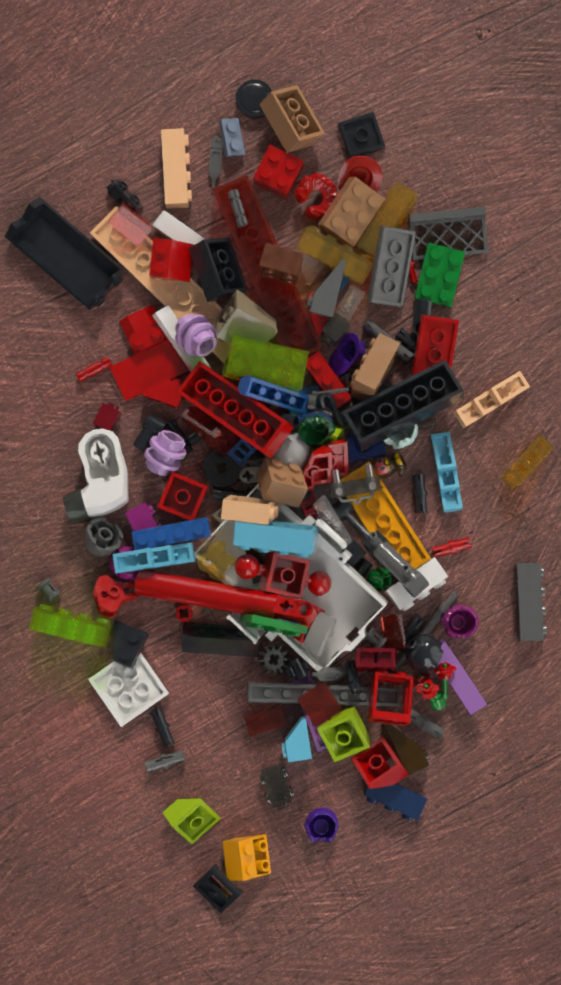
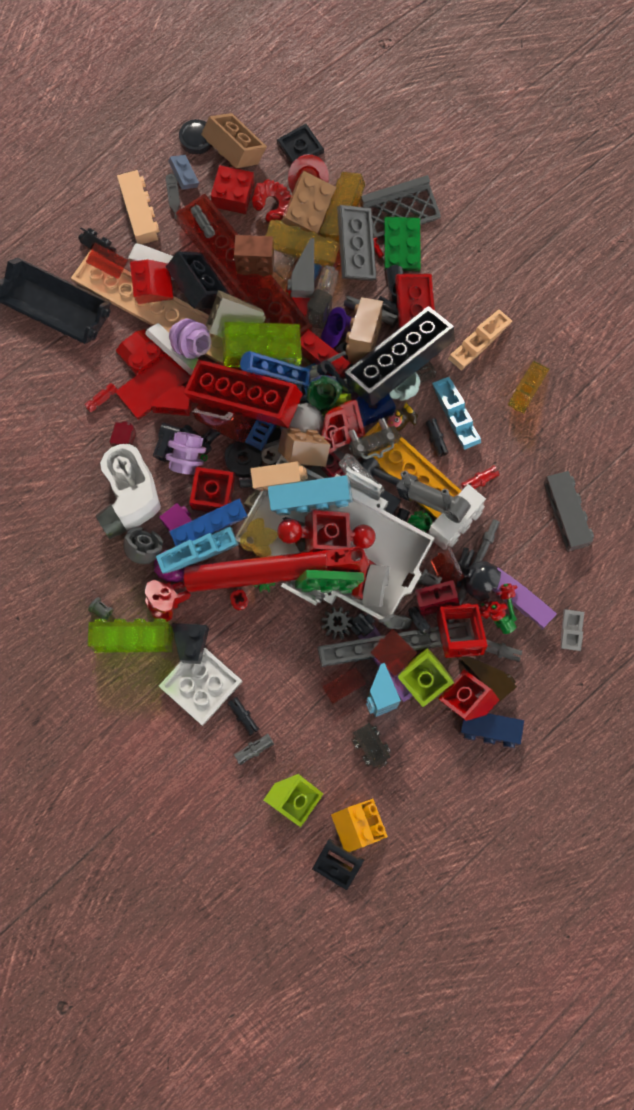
camera: 10 degrees left, 10 degrees down
(217, 640) = (280, 618): black panel -> none
(321, 825) = (426, 774): dark purple hair -> none
(460, 621) = (508, 544): magenta hair -> none
(499, 720) = (572, 630): none -> light grey slope

